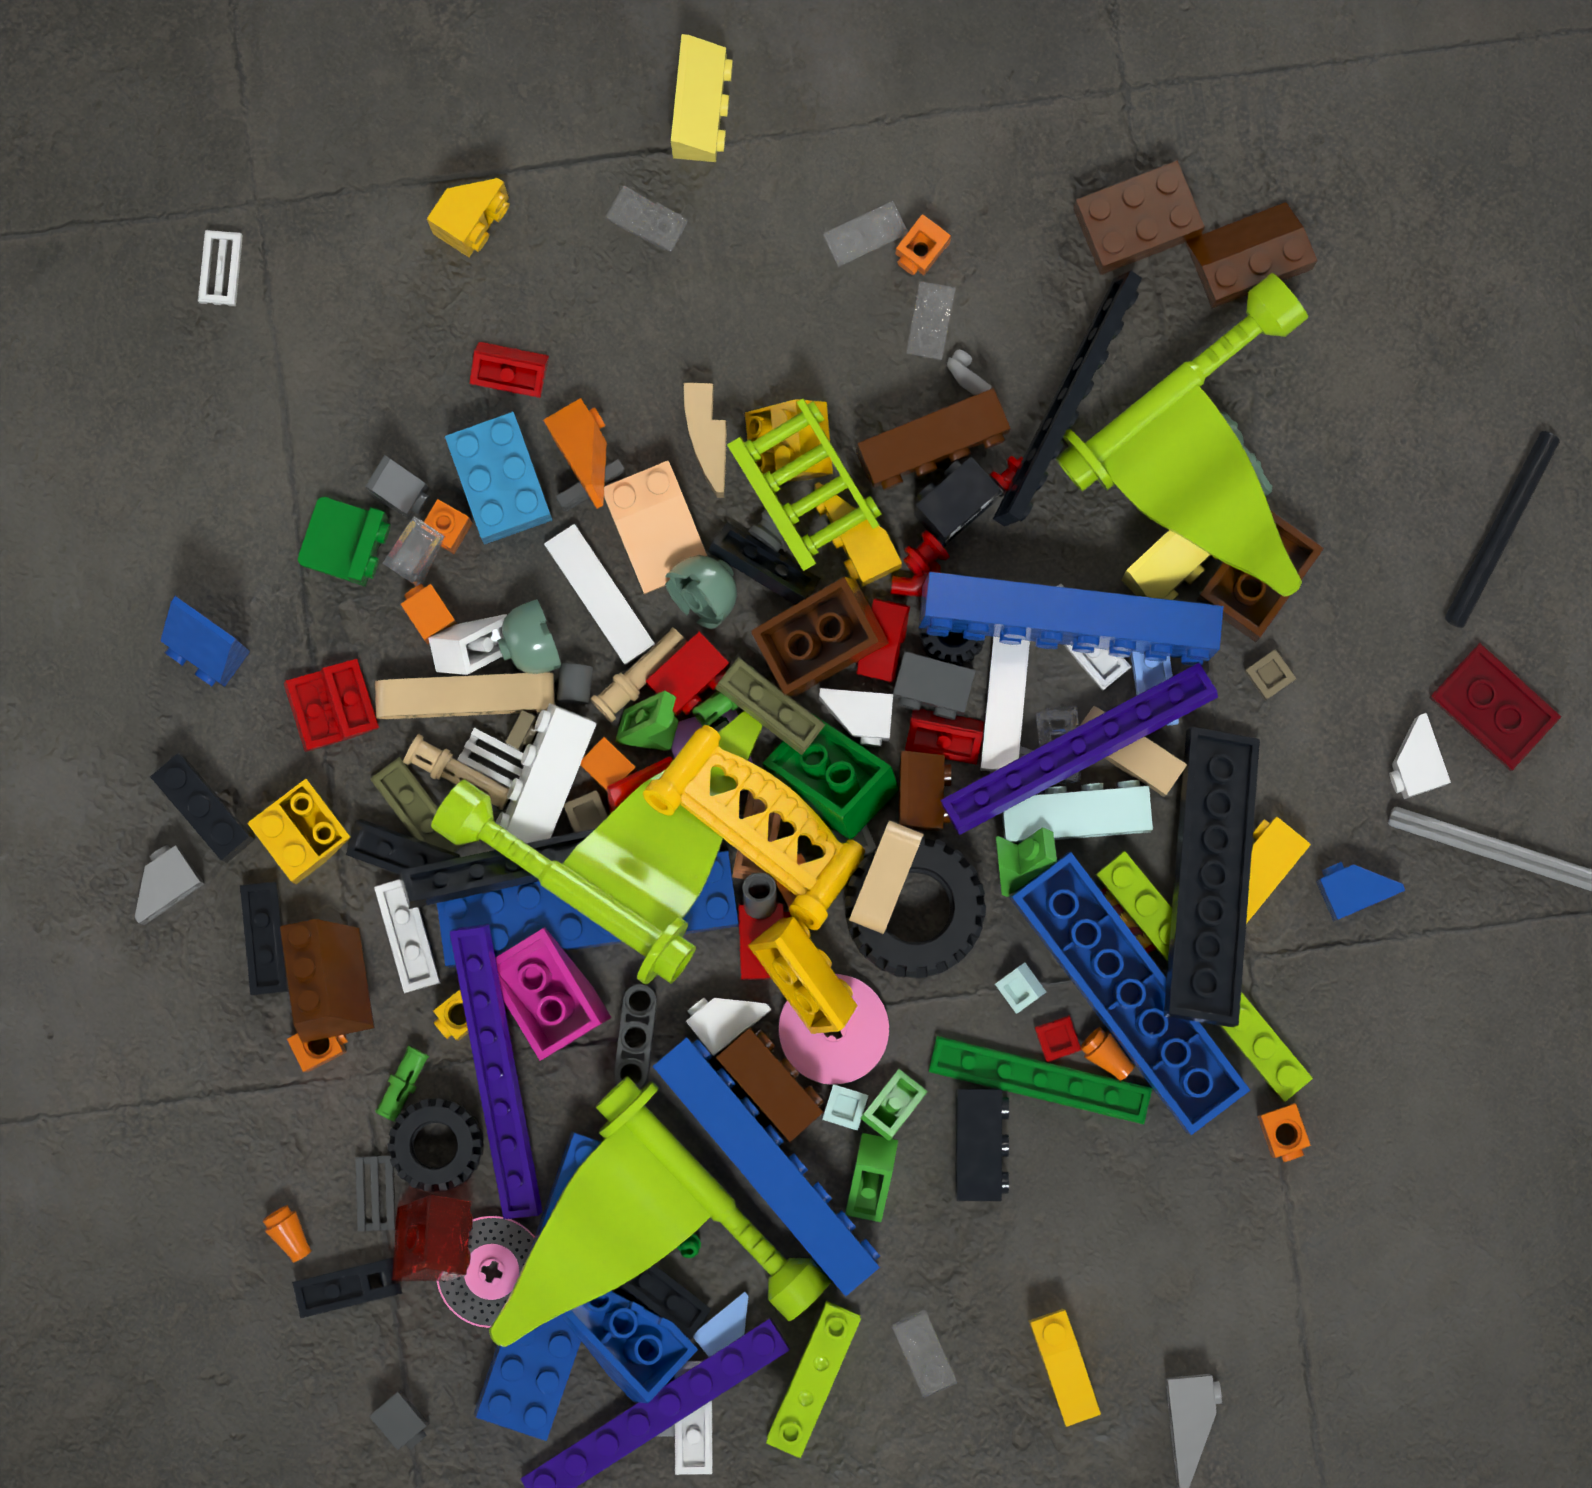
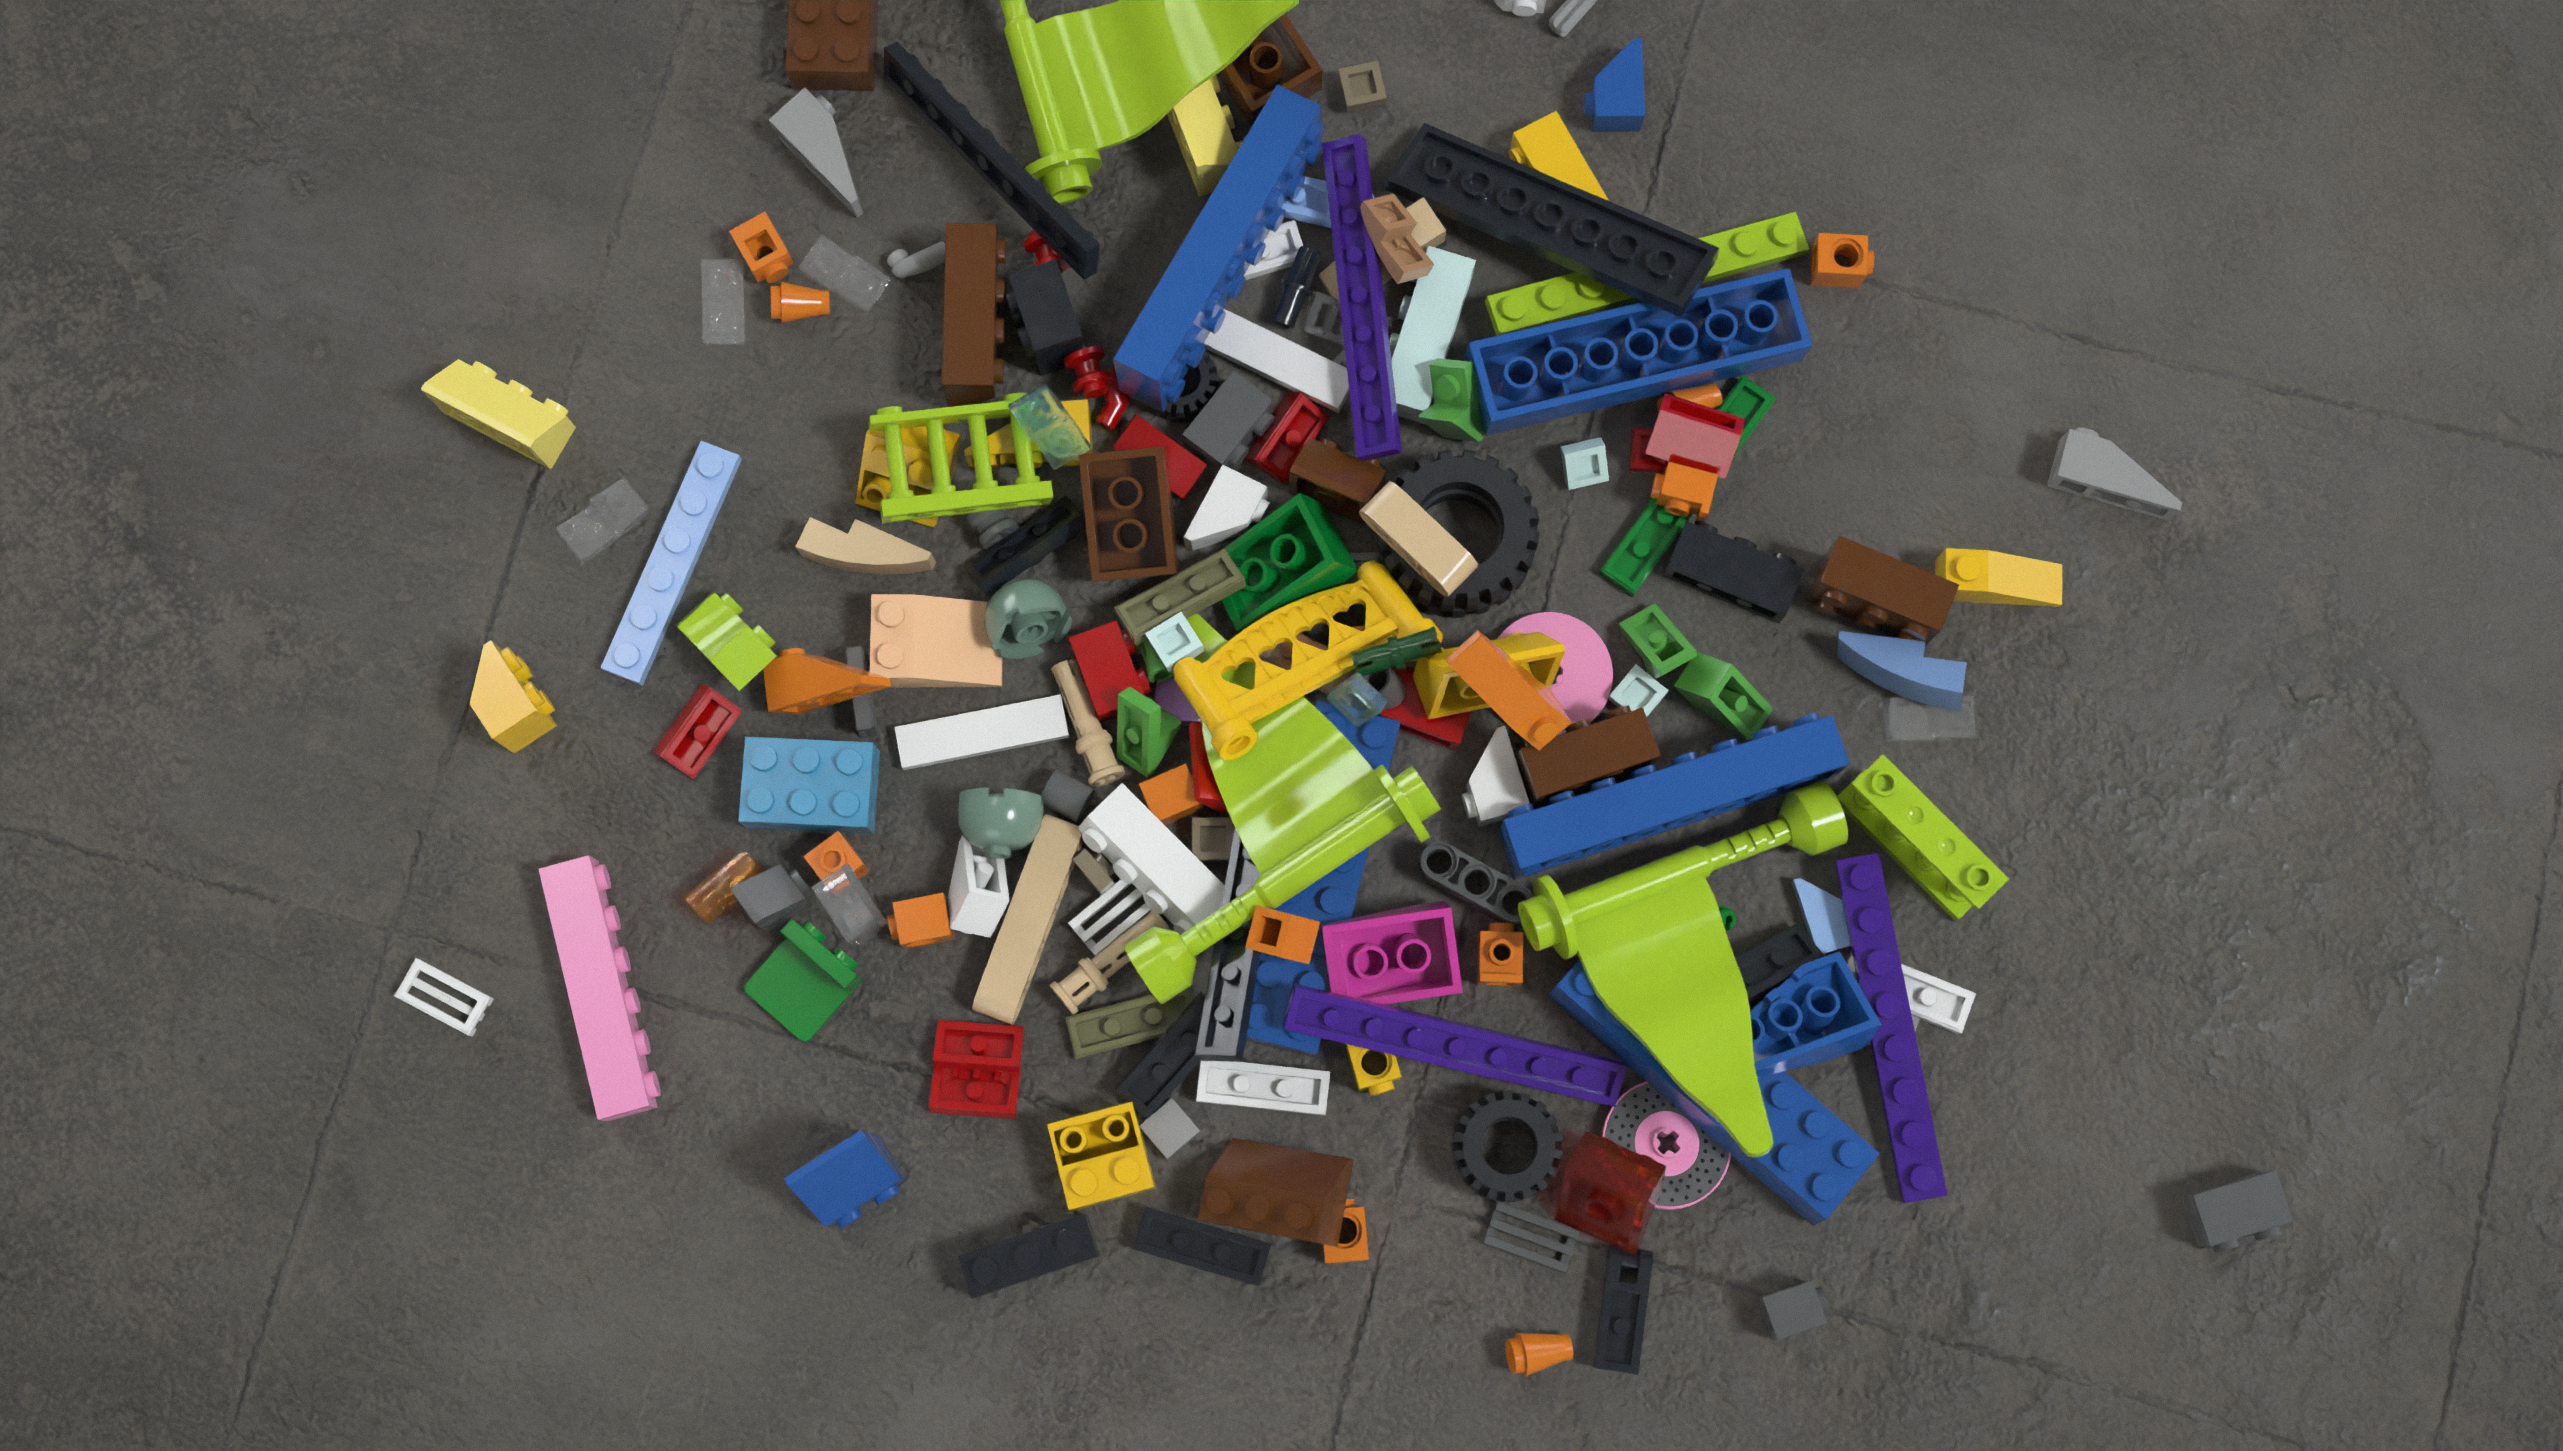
camera: 70 degrees left, 5 degrees down
(165, 883) = (1095, 1331): light grey slope -> none
(274, 385) = (599, 988): none -> bright pink brick
(345, 875) = (1169, 1128): none -> light grey tile
(386, 441) = (714, 892): none -> clear orange hinge
(402, 1083) = (1423, 1158): bright green pin -> none
(521, 899) = (1282, 934): none -> orange brick
(575, 1091) = (1494, 971): none -> orange brick
(587, 361) = (727, 639): none -> lime brick
(635, 288) = (671, 563): none -> light blue plate
(728, 717) = (1174, 641): none -> light aqua plate
(735, 881) = (1357, 699): none -> clear light blue tile
(784, 897) = (1396, 652): none -> dark green pin
(786, 1001) = (1509, 690): none -> orange slope
(861, 544) = (1050, 426): none -> clear light blue slope
(890, 293) = (798, 302): none -> orange cone
(952, 1315) = (1903, 669): none -> medium blue slope
(1005, 1272) = (1881, 592): none -> reddish brown brick
(1026, 1077) = (1684, 490): none -> orange brick
(1032, 250) = (812, 136): none -> light grey slope
(1072, 691) = (1296, 287): none -> black axle
(1075, 1068) = (1694, 436): none -> brick
(1140, 750) = (1390, 233): none -> medium nougat slope

